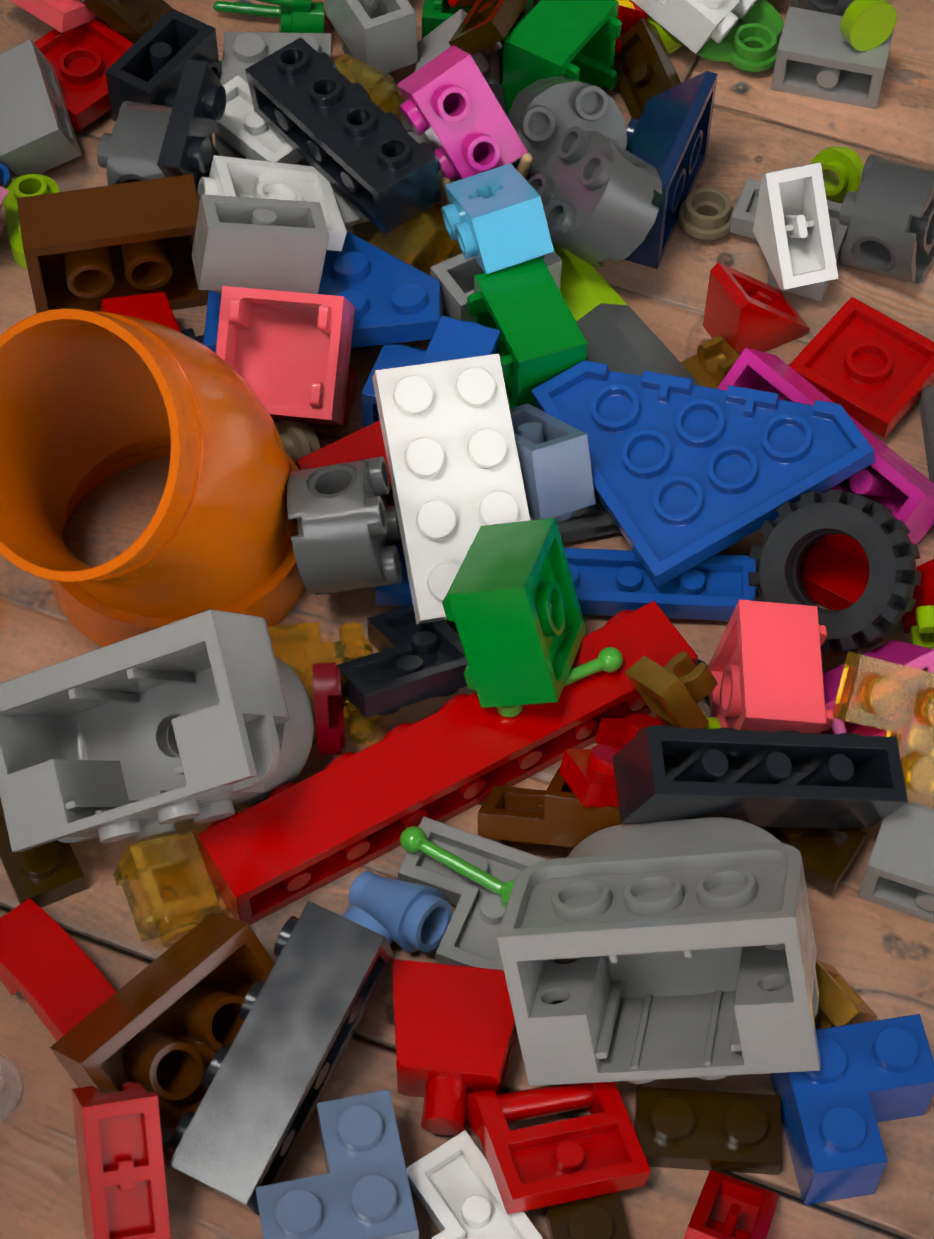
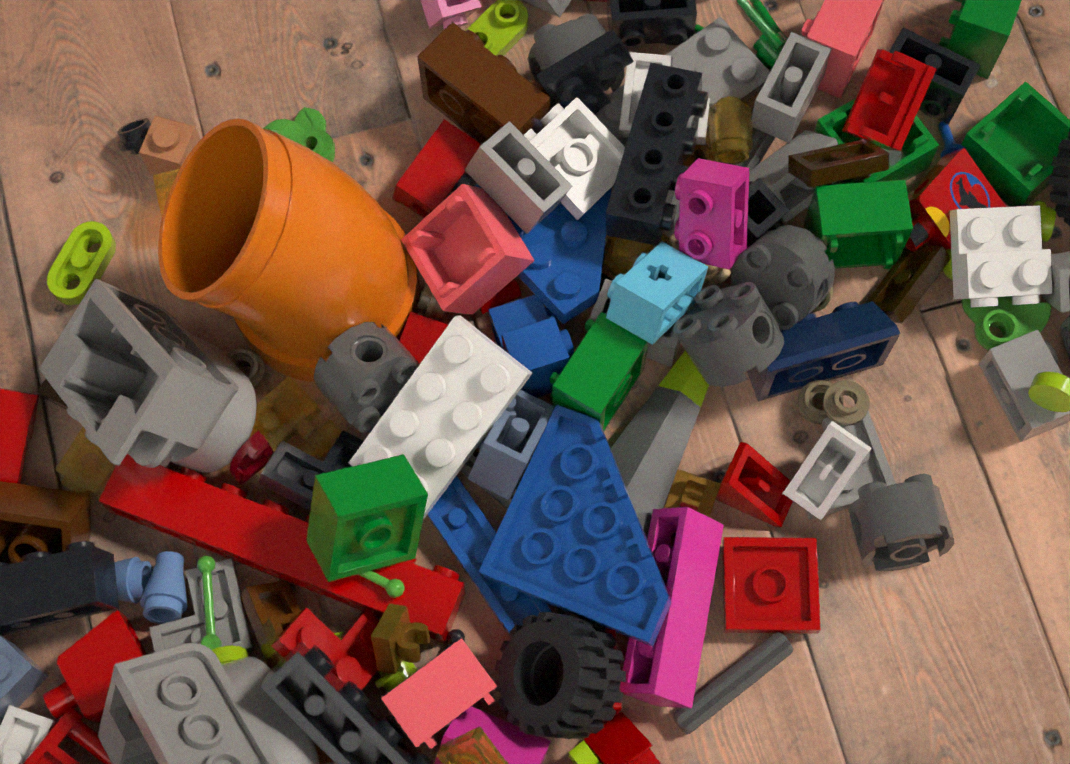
camera: 55 degrees right, 15 degrees up
(734, 184) = (841, 414): none -> dark tan plate
(847, 167) = (924, 456): lime plate -> none

